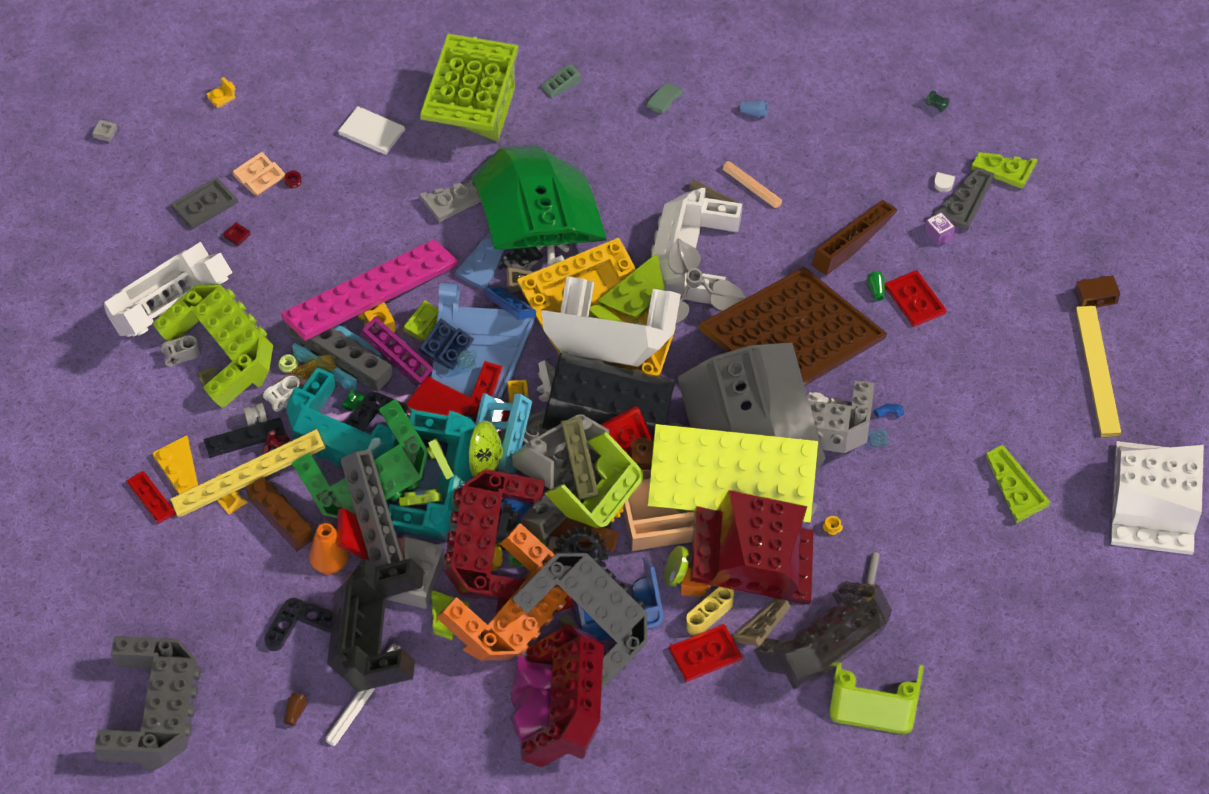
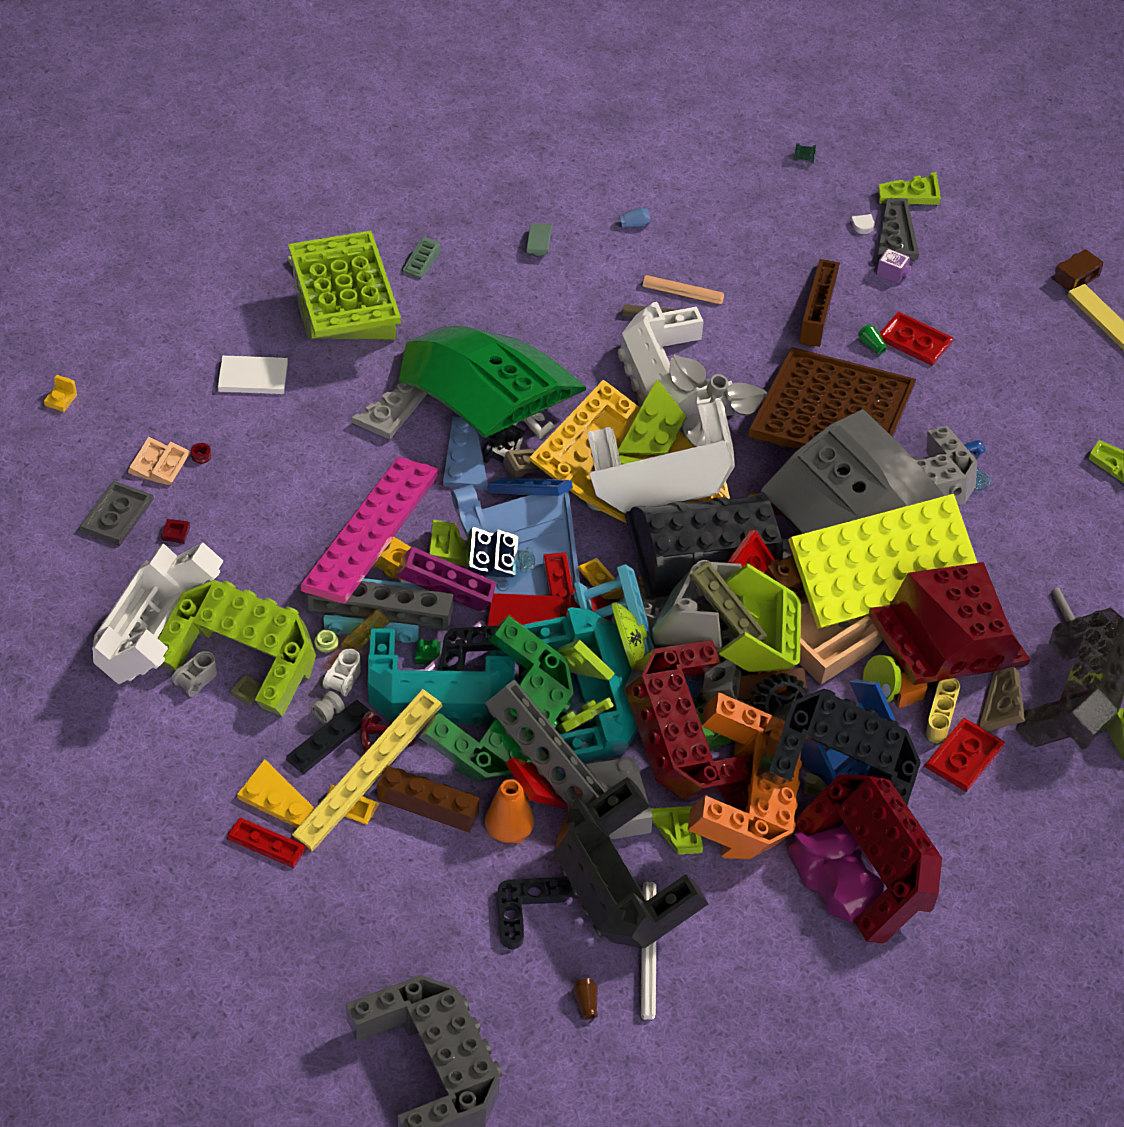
camera: 30 degrees left, 5 degrees down
(546, 375) = (621, 556): white plate -> none
(836, 522) = (1001, 576): yellow plate -> none

